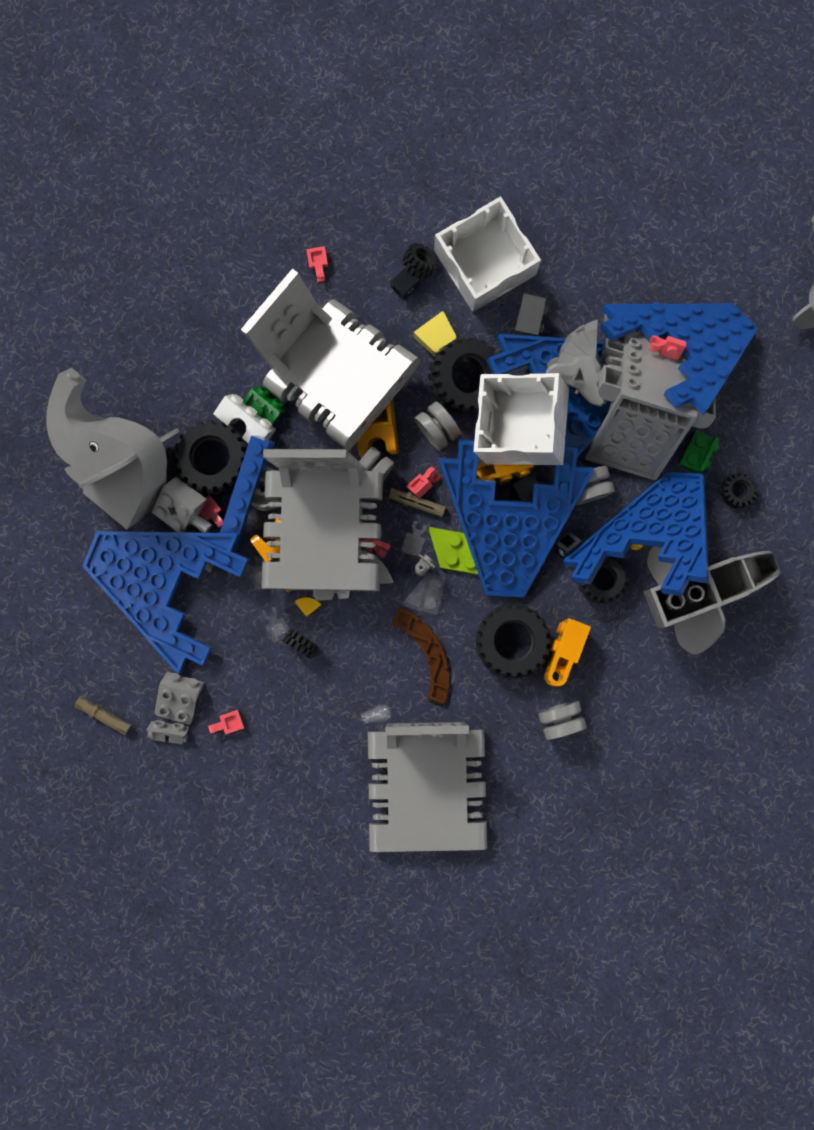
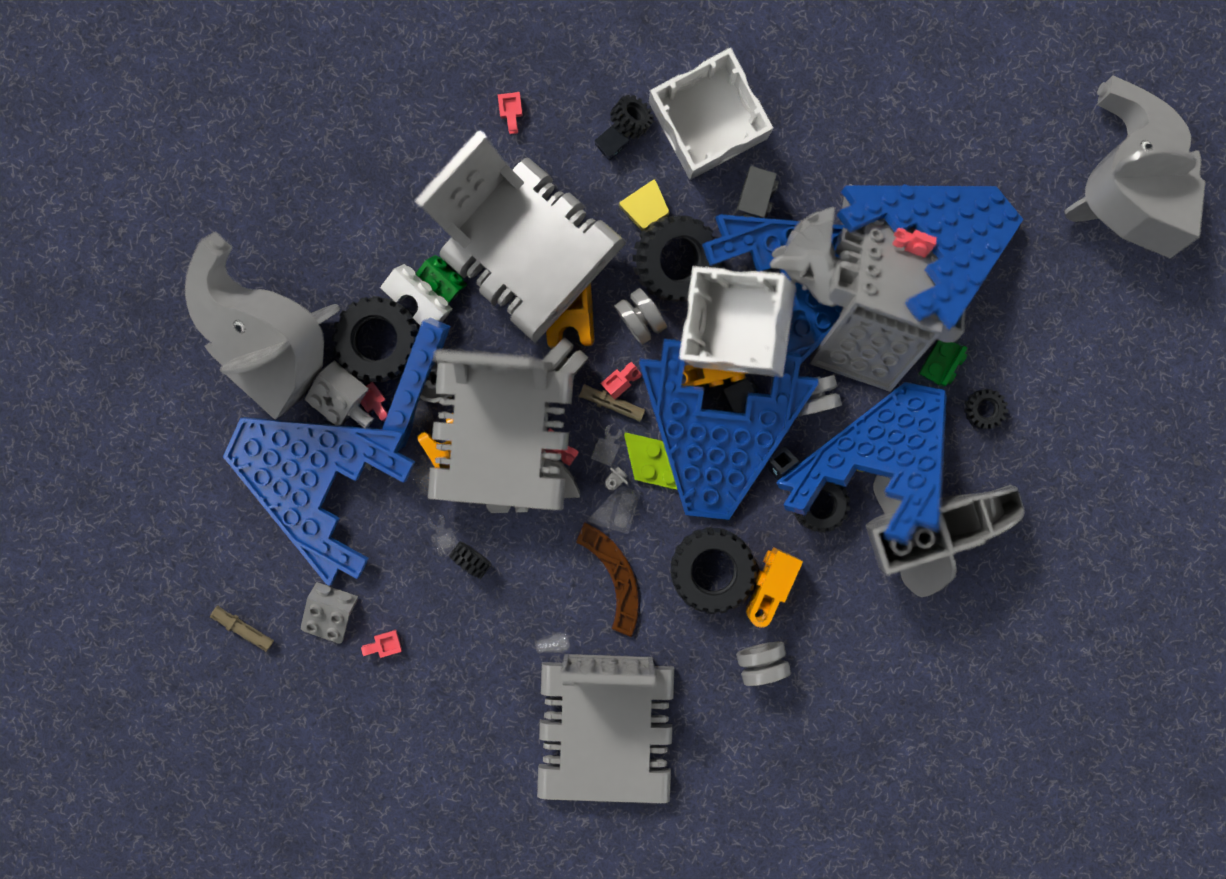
camera: 10 degrees right, 5 degrees up
(159, 729) = (305, 648): light grey hinge -> none
(307, 605) = (480, 515): yellow tile -> none

